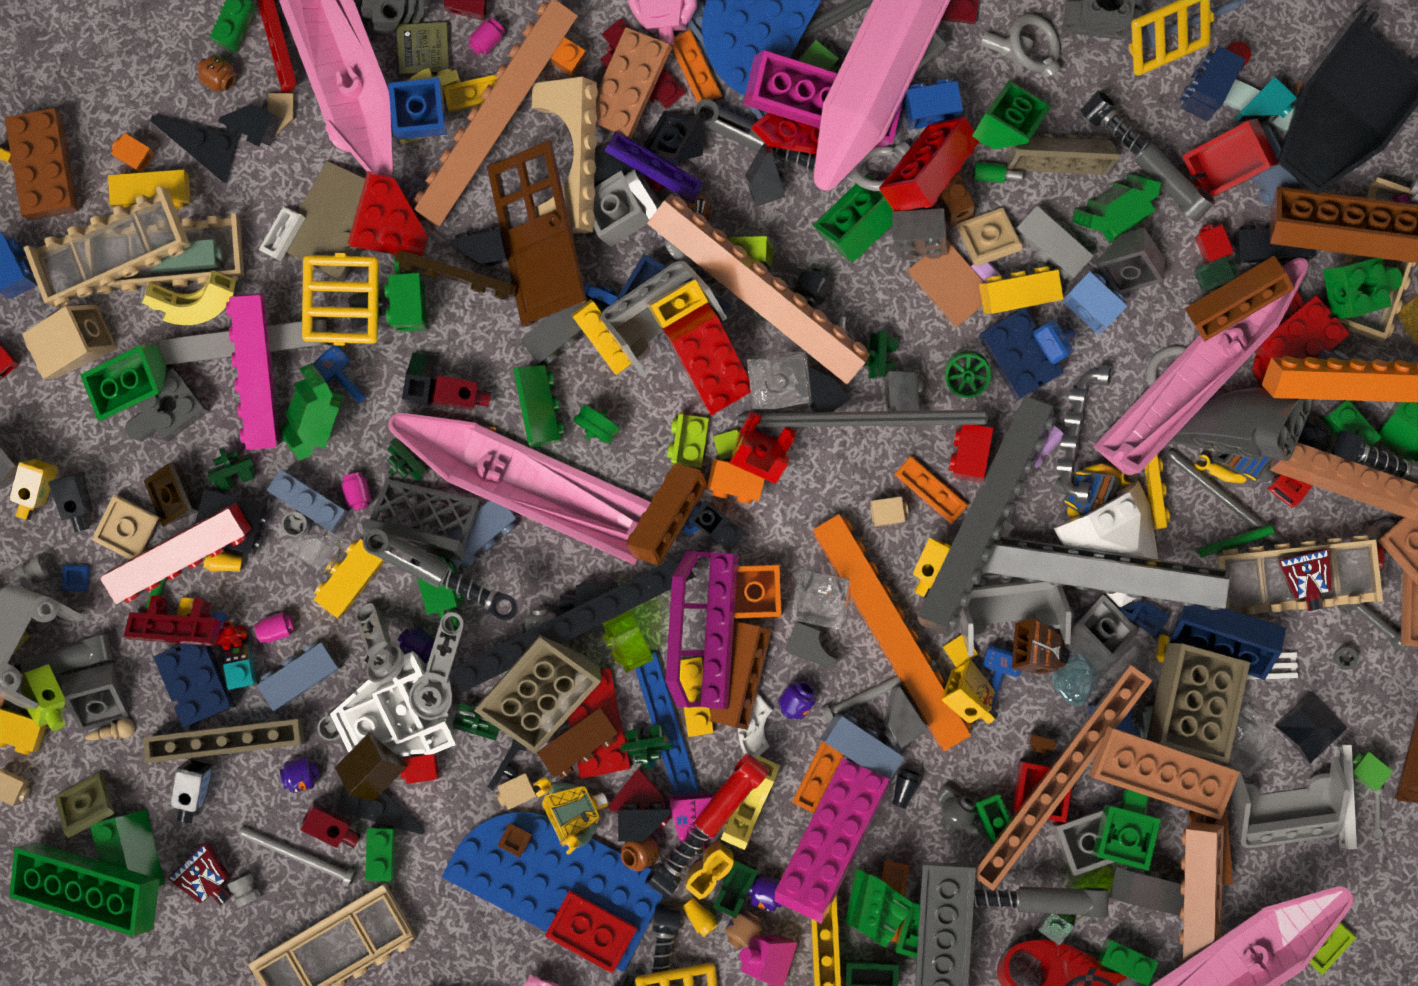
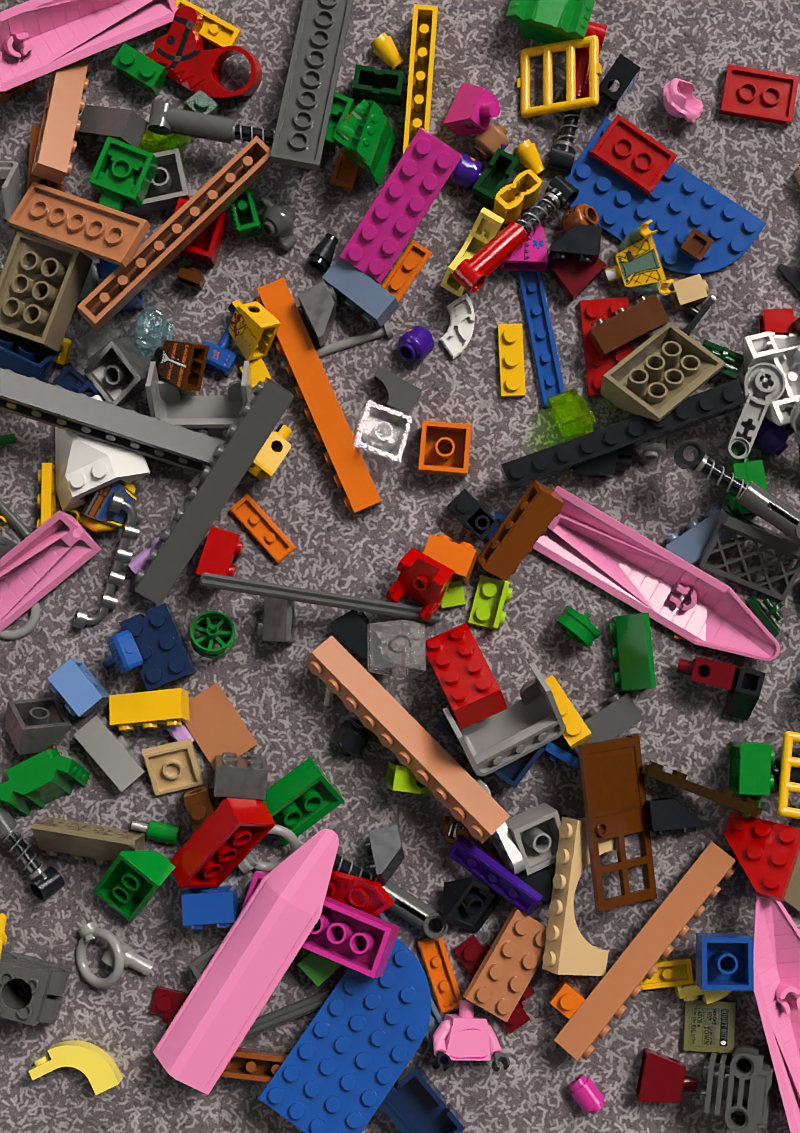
camera: 175 degrees left, 0 degrees up
(486, 37) = (645, 1030): dark pink brick -> none
(647, 750) = (572, 321): dark green hips -> none
(677, 303) = (490, 730): yellow slope -> none
(718, 630) = (484, 411): magenta plate -> none
(747, 662) = (467, 372): dark orange brick -> none
(877, 347) = (297, 668): dark green hips -> none
(888, 511) = (306, 510): tan brick -> none

